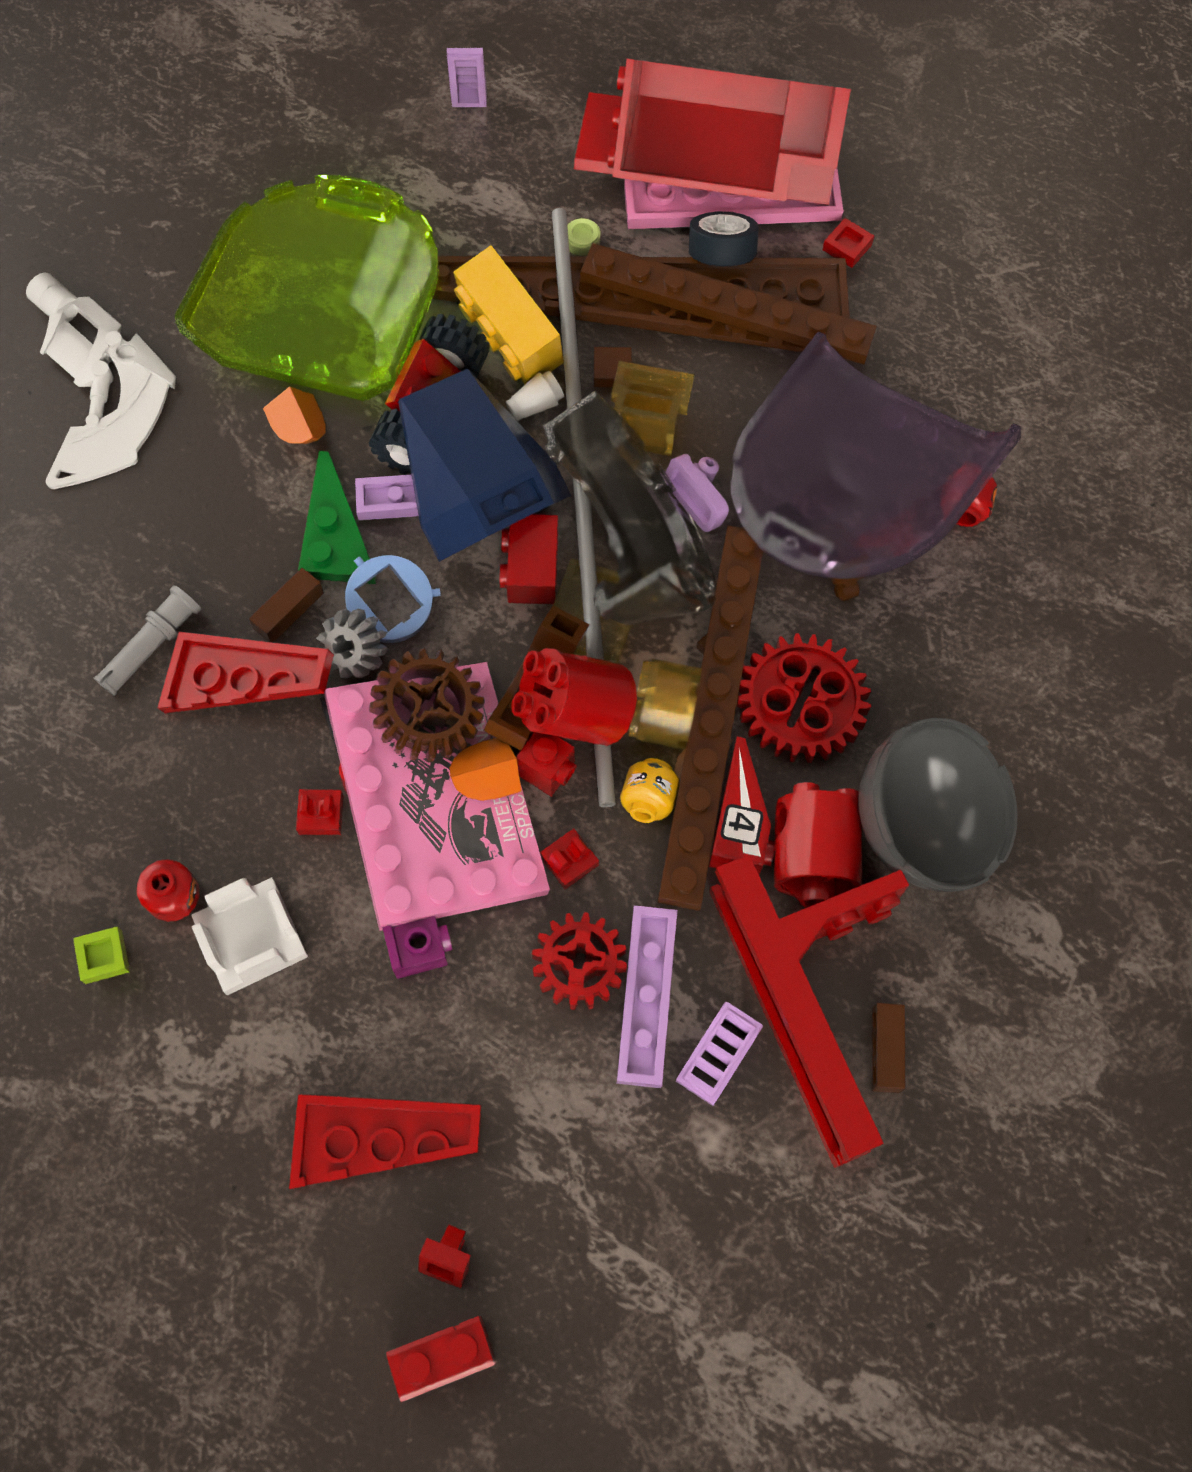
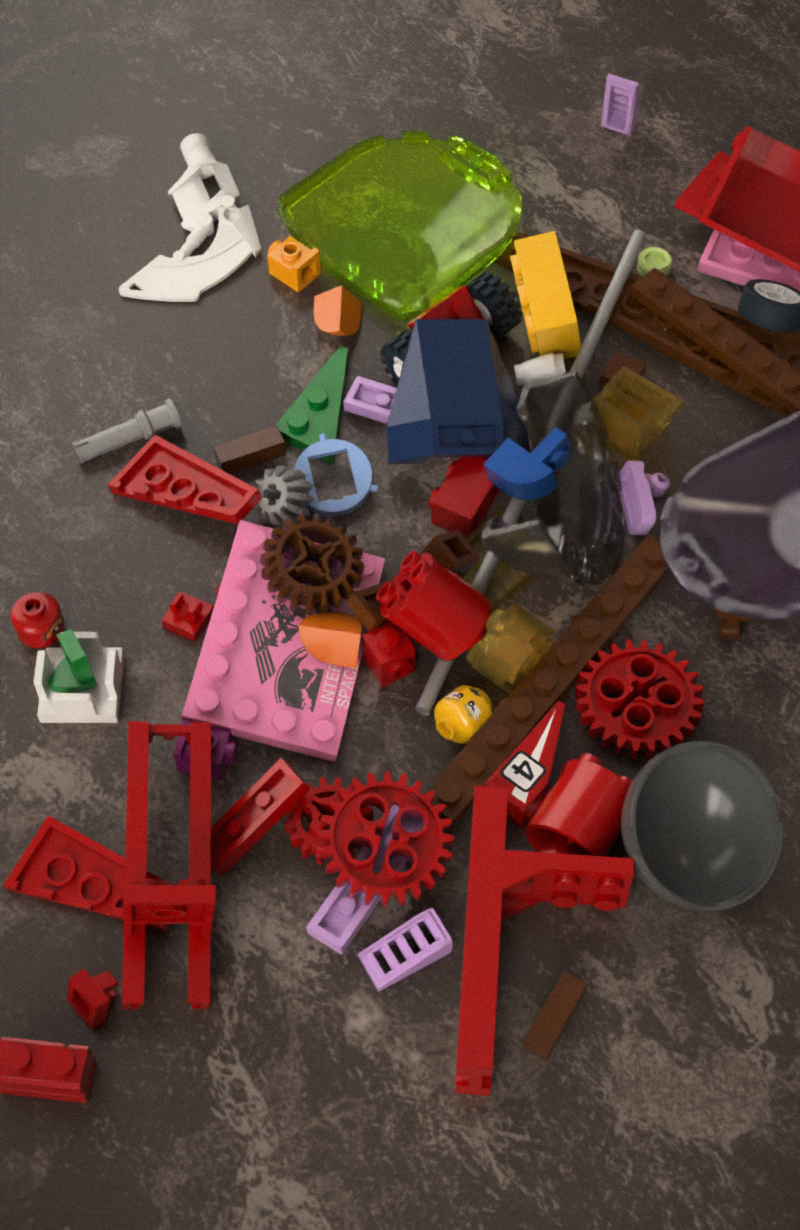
camera: 30 degrees right, 10 degrees down
(220, 380) = (293, 263): none -> light orange brick
(237, 927) = (74, 671): none -> green tile
(505, 996) = (255, 815): none -> red plate
(518, 1128) = (144, 898): none -> red piece
(569, 858) = (368, 740): red tile -> none
(590, 518) = (527, 474): none -> blue brick
(690, 951) = (351, 828): none -> red gear

